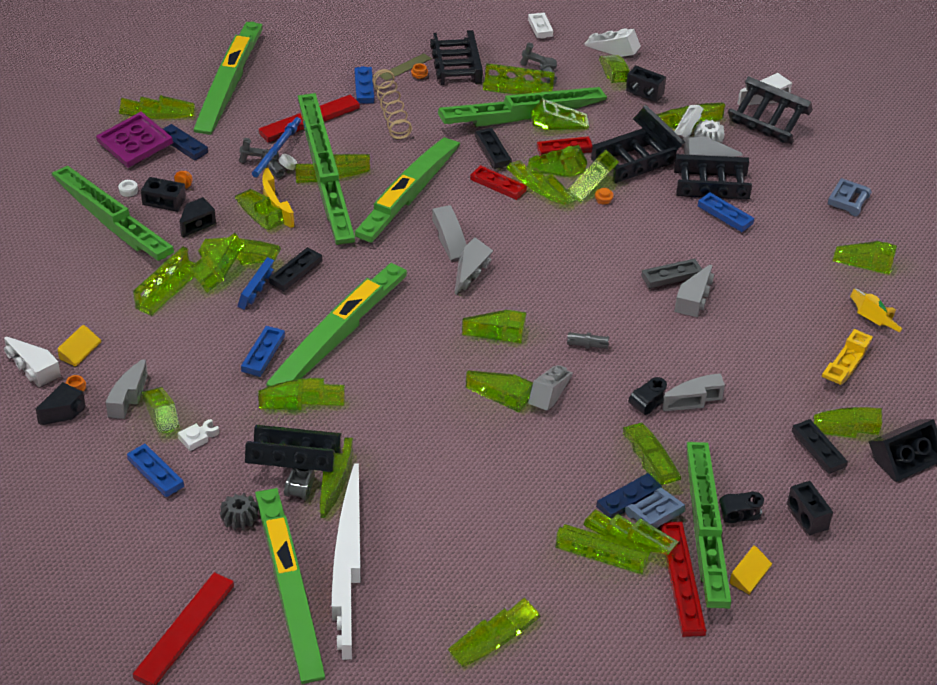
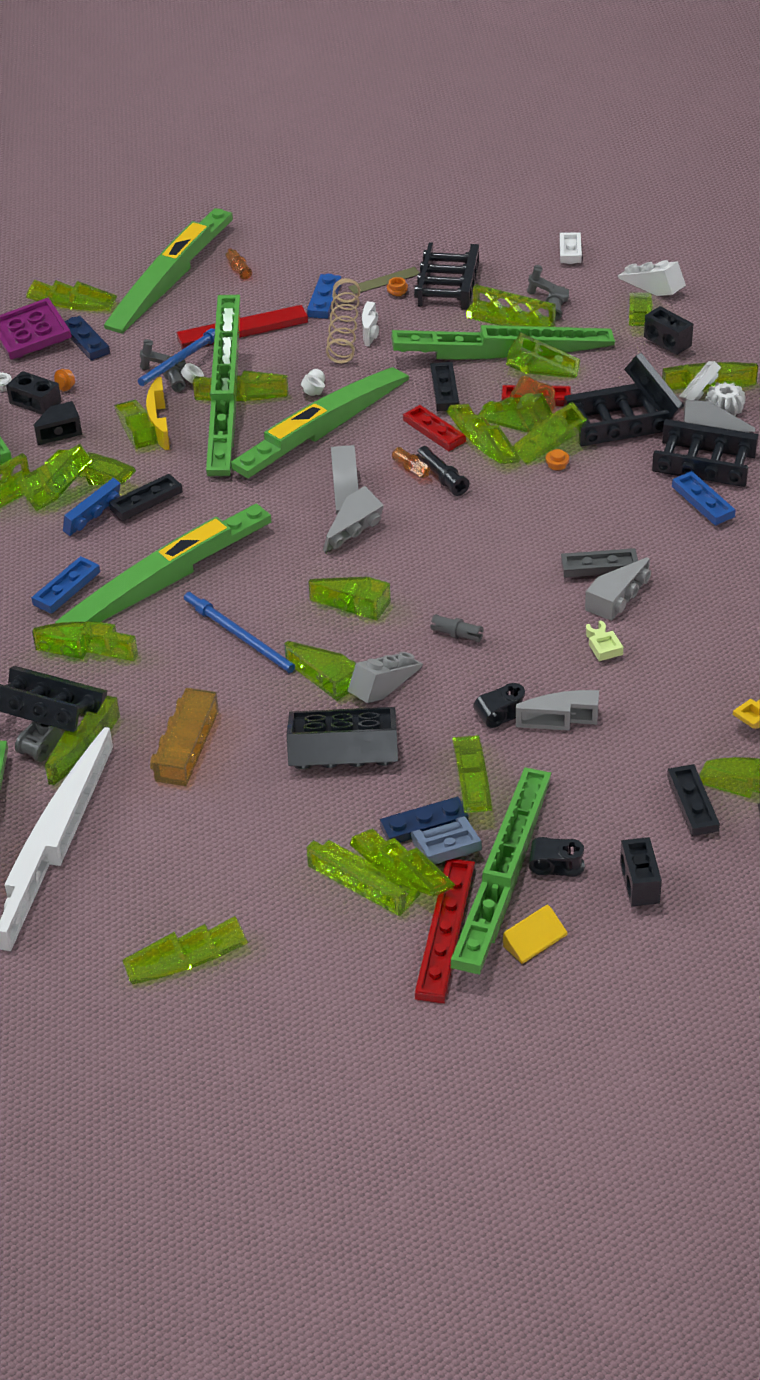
camera: 20 degrees right, 0 degrees up
(283, 66) = (238, 264): none -> clear orange axle
(385, 354) = (206, 609): none -> blue bar
(388, 157) = (313, 382): none -> white plate
(412, 106) = (369, 322): none -> white slope
(417, 462) = (184, 737): none -> clear yellow brick
(494, 213) = (410, 462): none -> clear orange axle
(527, 219) = (447, 474): none -> black pin
(540, 440) = (342, 737): none -> black slope
(561, 141) = (528, 385): none -> clear orange piece
(702, 336) = (603, 643): none -> yellowish green plate

